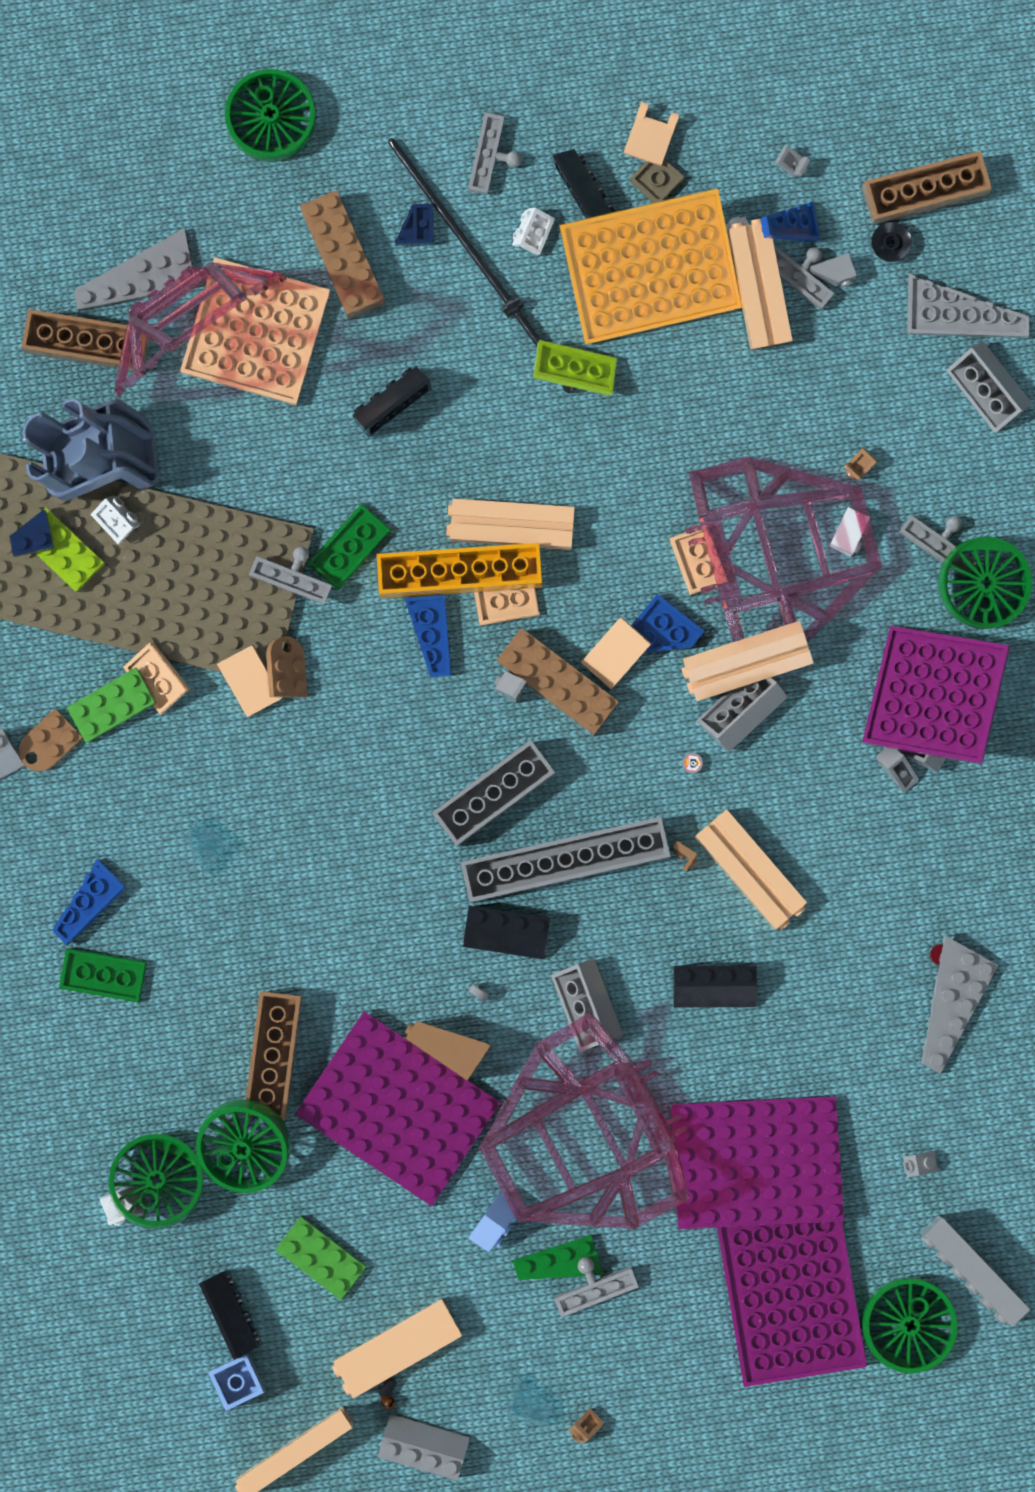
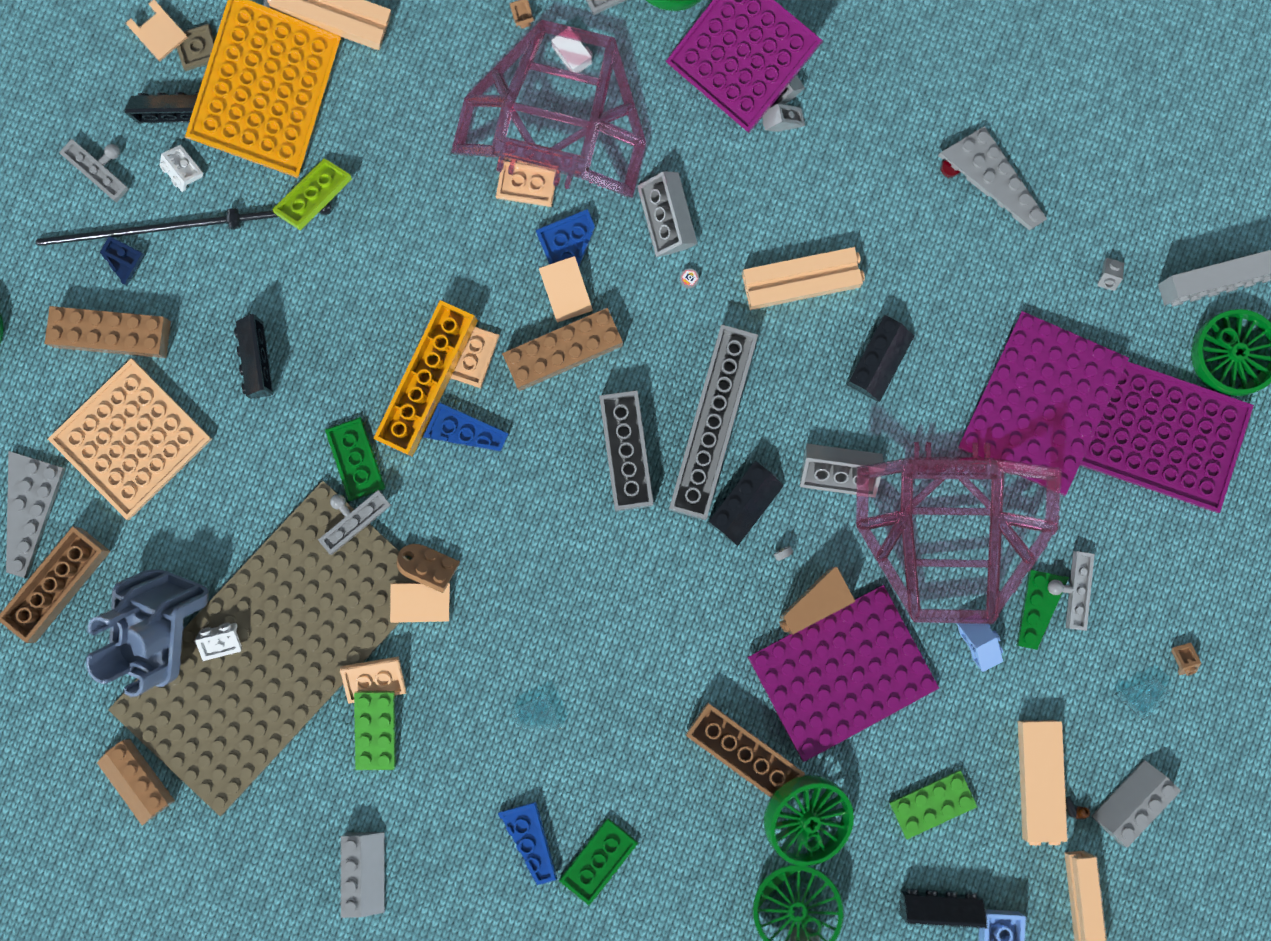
camera: 65 degrees left, 0 degrees up
(32, 536) = (192, 720): dark blue wing -> none
(50, 741) = (376, 799): medium nougat plate -> none
(70, 556) = (218, 702): lime plate -> none
(189, 279) = (57, 514): clear pink windscreen -> none
(510, 523) = (410, 316): light nougat brick -> none
(510, 686) = (545, 389): light grey slope -> none
(682, 851) = (758, 324): medium nougat bracket -> none
(747, 661) = (632, 185): light nougat brick -> none

